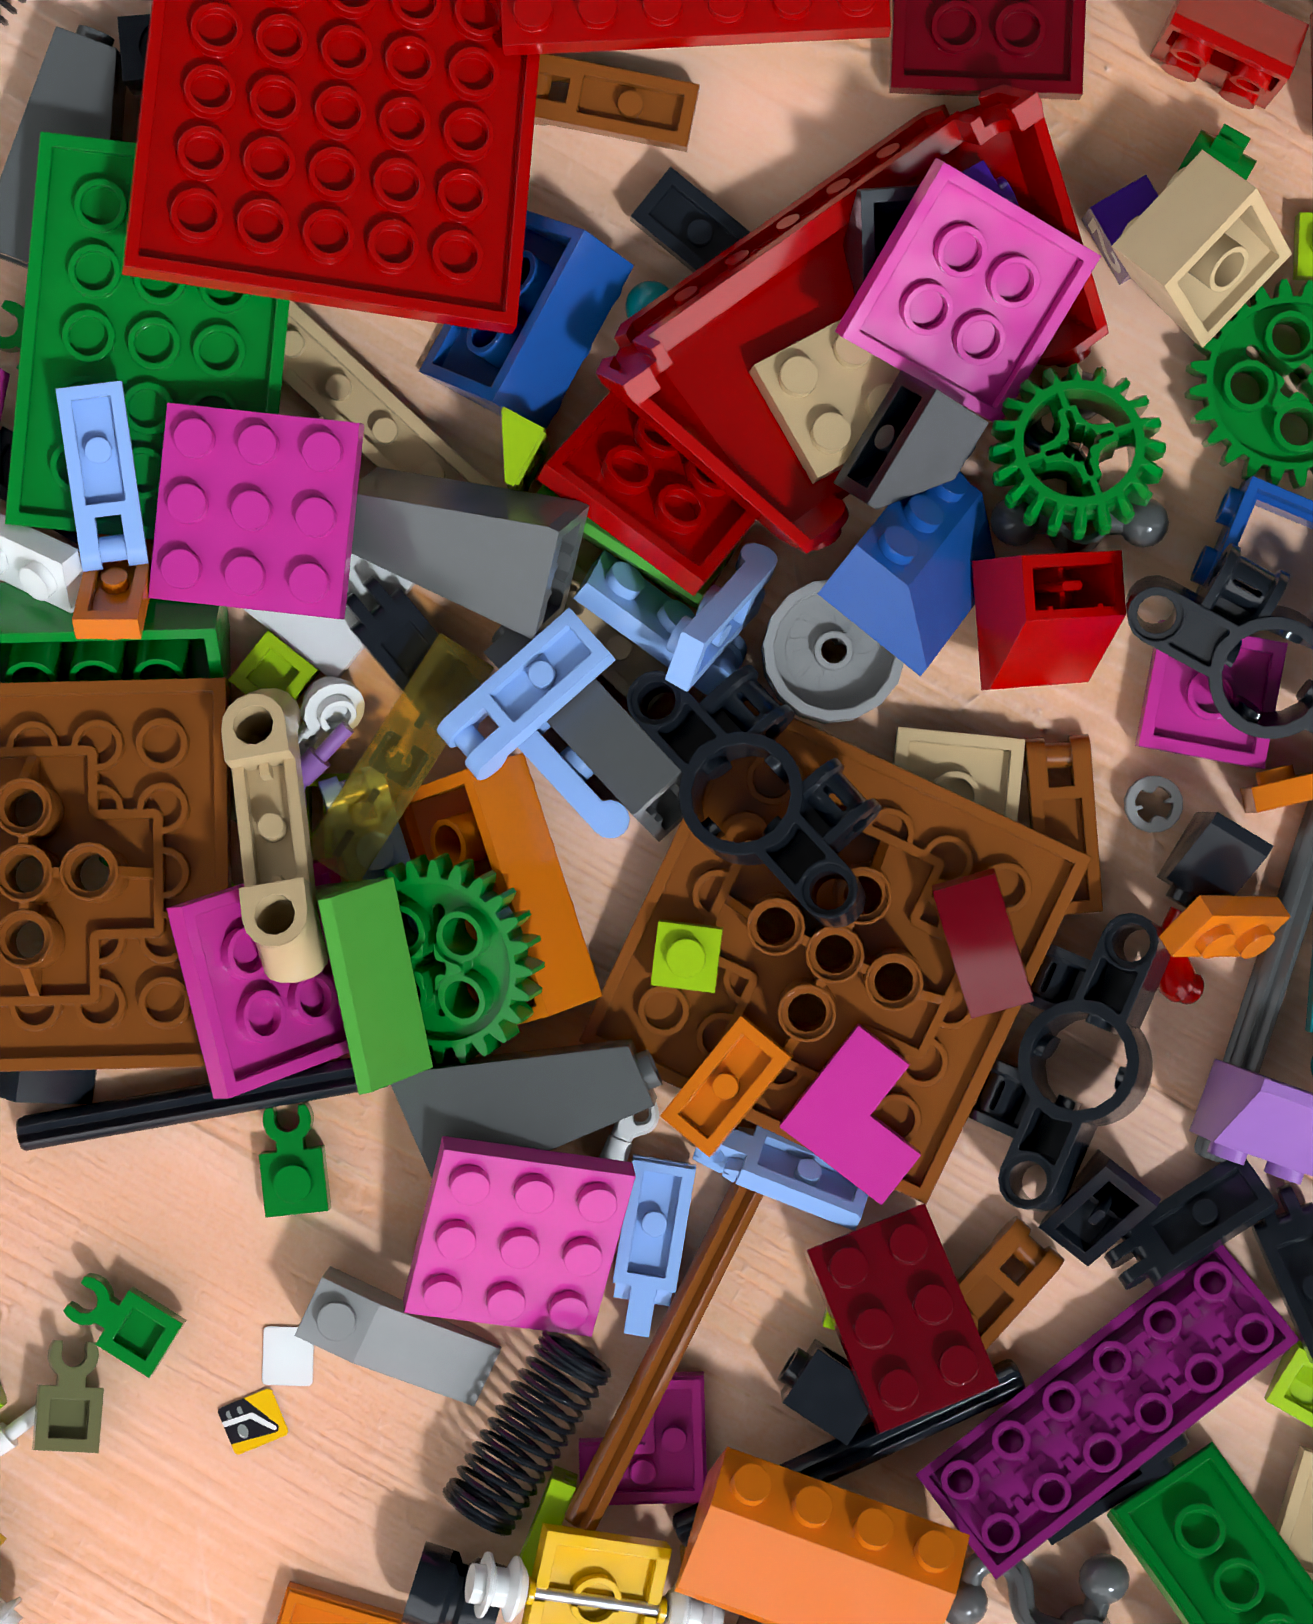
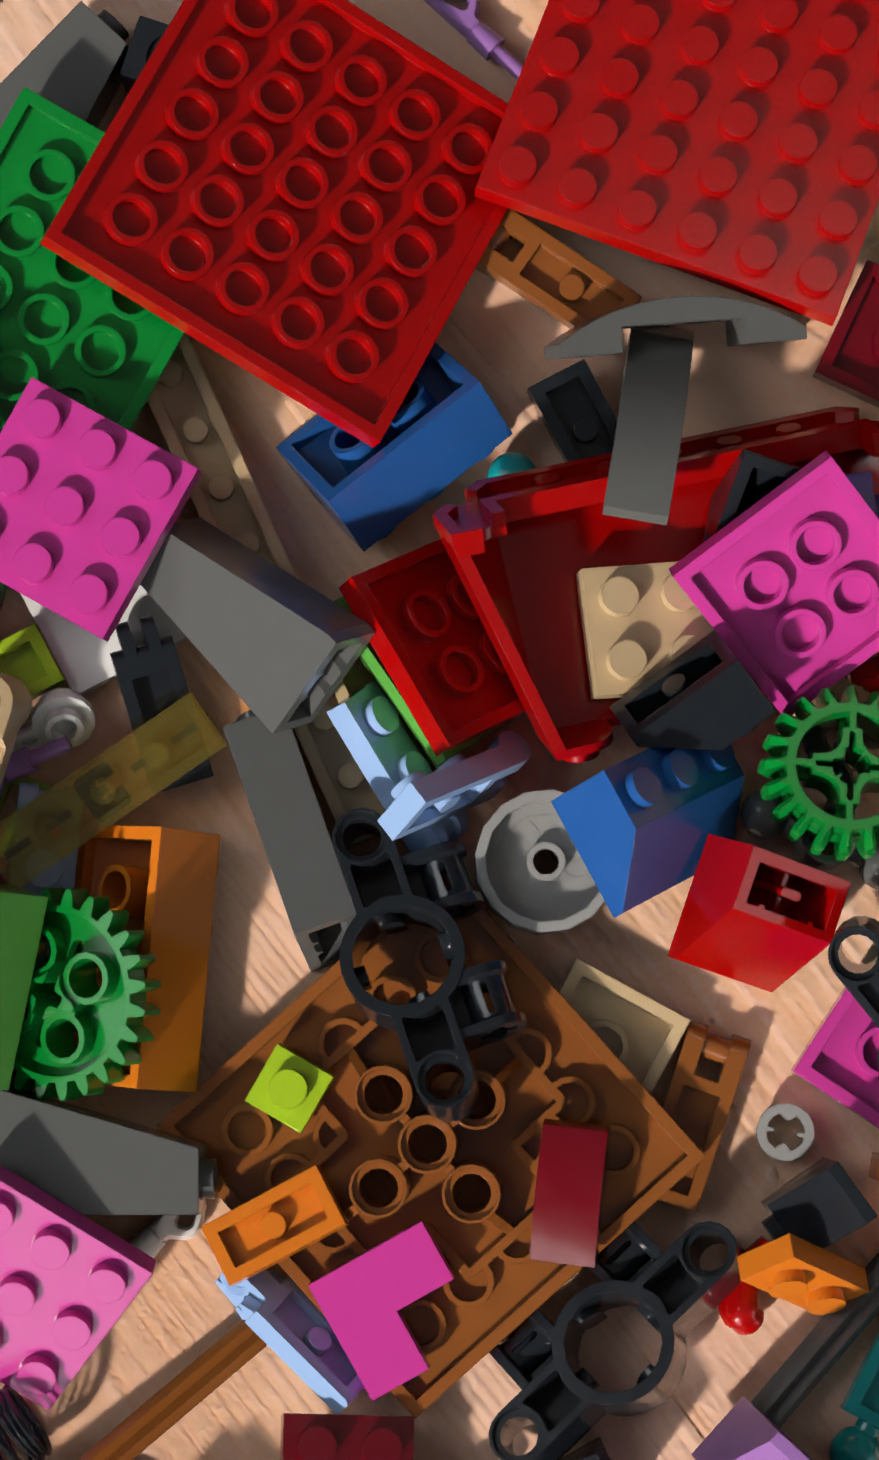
camera: 30 degrees right, 5 degrees down
(523, 449) = (338, 557): lime slope -> none
(525, 693) = (243, 779): light blue plate -> none
(569, 777) = (249, 866): light blue plate -> none
(652, 1238) = (145, 1341): light blue hinge -> none
(759, 201) = (649, 424): none -> dark grey slope
(805, 68) = (744, 321): none -> dark grey slope

